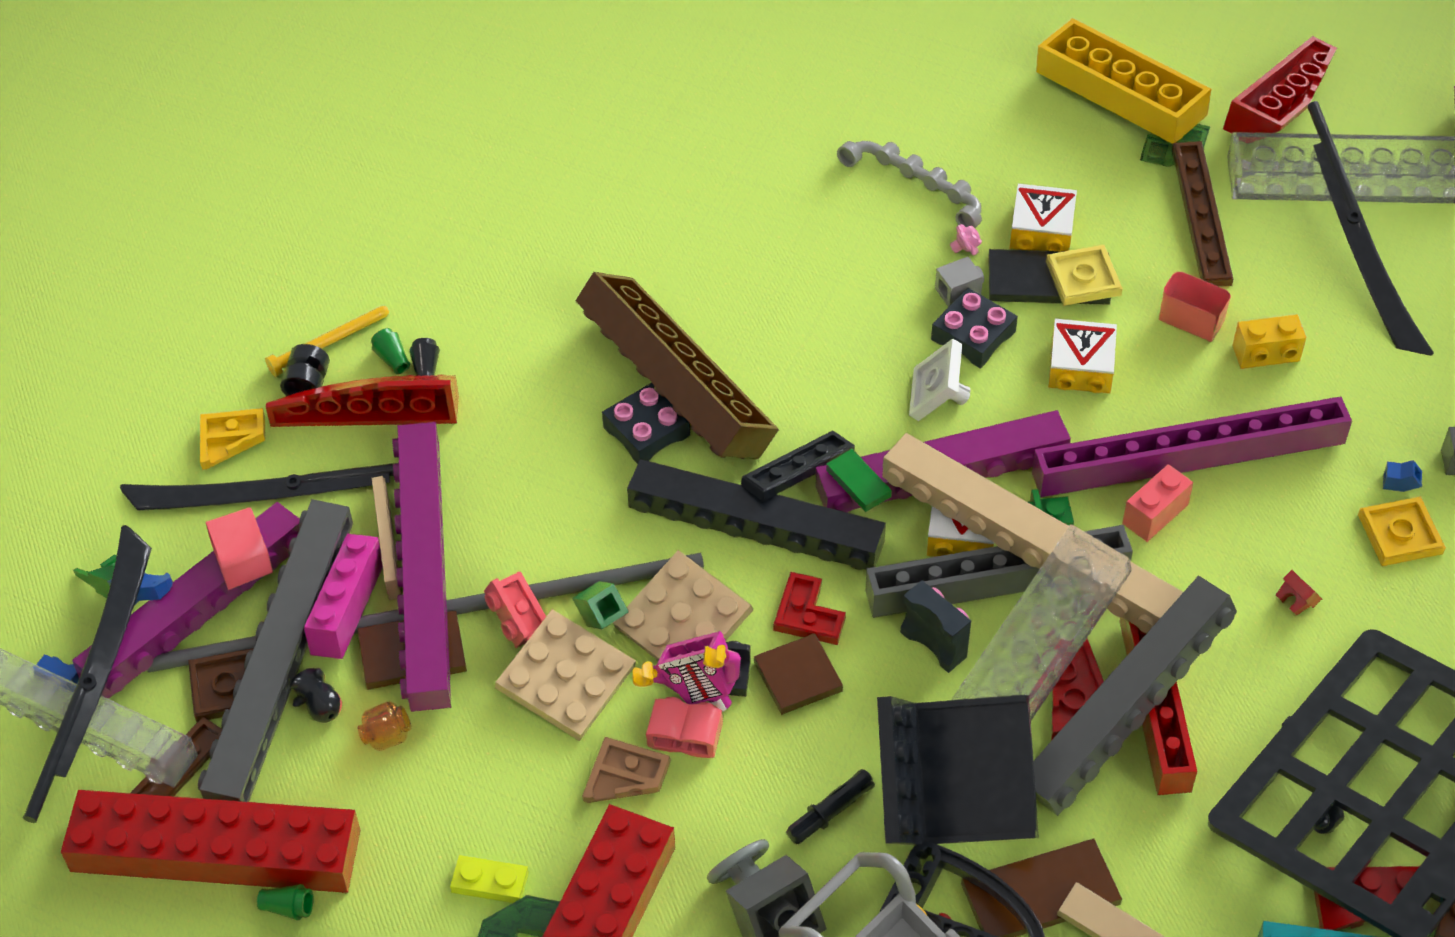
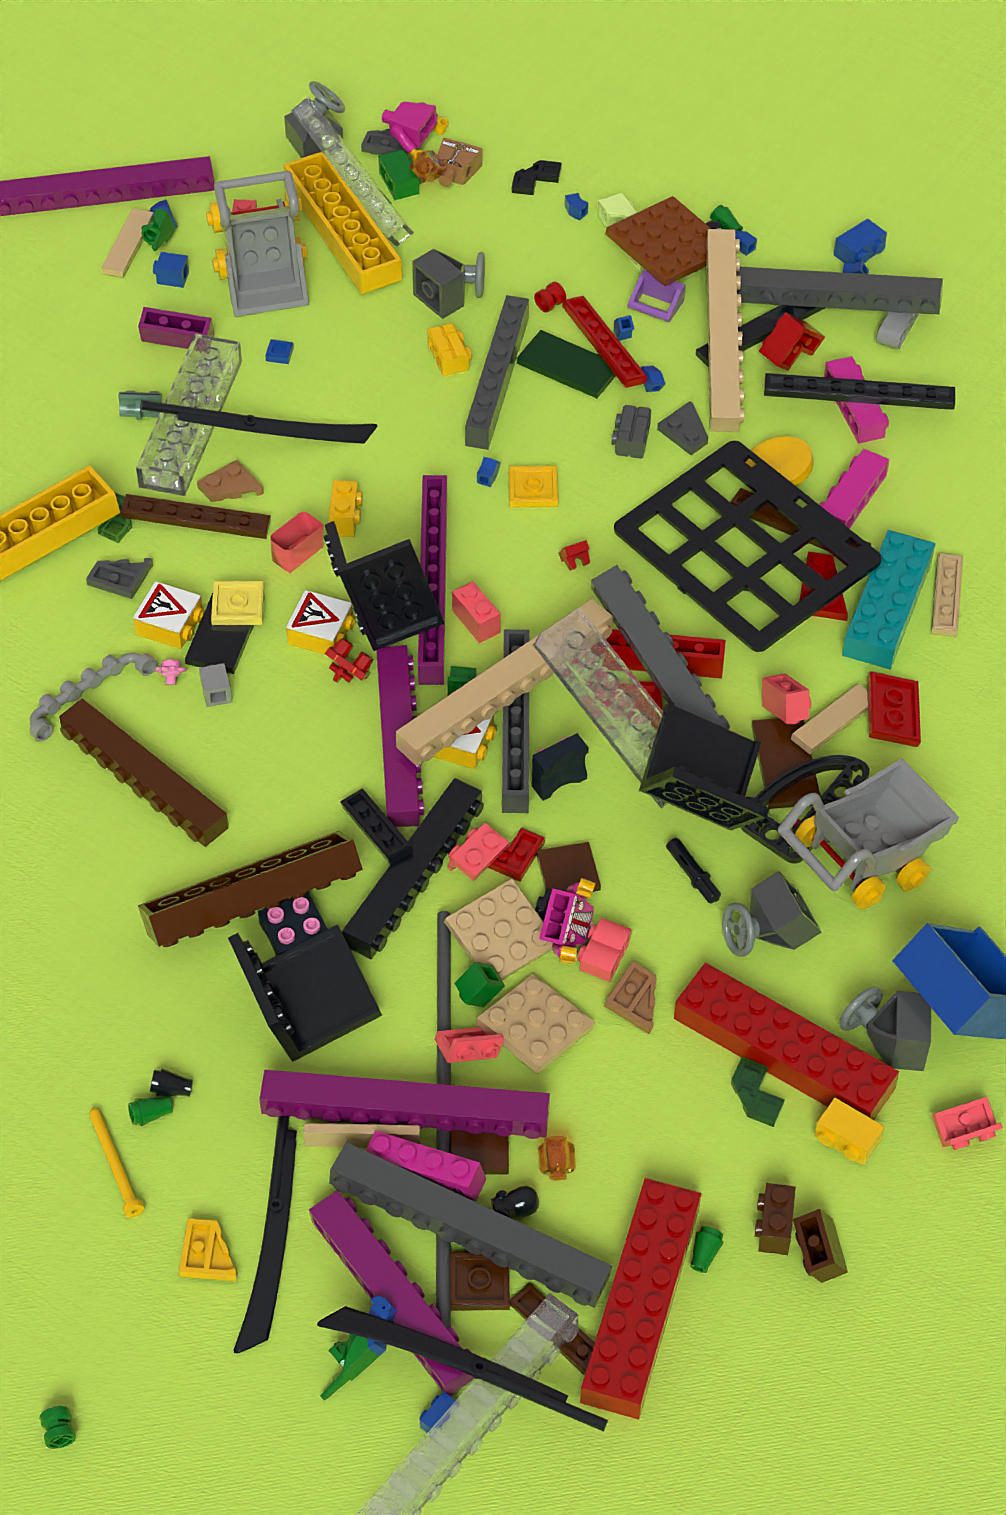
camera: 80 degrees left, 0 degrees up
(17, 364) = (57, 1427): none -> green wheel
(239, 547) = (365, 1233): coral piece -> none
(304, 369) = (156, 1178): black wheel -> none
(370, 402) = (209, 1118): red wedge -> none
(489, 879) = (709, 1105): neon yellow plate -> none
(542, 432) = (309, 991): none -> black bracket
(791, 571) = (478, 851): none -> coral bracket
(815, 249) = (143, 773): none -> reddish brown brick
(858, 480) = (412, 784): green tile -> none
(937, 381) = (320, 717): white tile -> none
(976, 325) = (265, 686): black brick -> none
(1028, 391) = (339, 654): none -> red hips
(1087, 169) = (119, 576): none -> dark grey wing
(1108, 361) = (386, 591): none -> black bracket
(1130, 863) = (785, 698): none -> coral brick
(1270, 233) = (229, 483): none -> medium nougat wing
(1282, 91) = (103, 438): red wedge -> none
(1348, 120) = (131, 402): none -> sand green hips

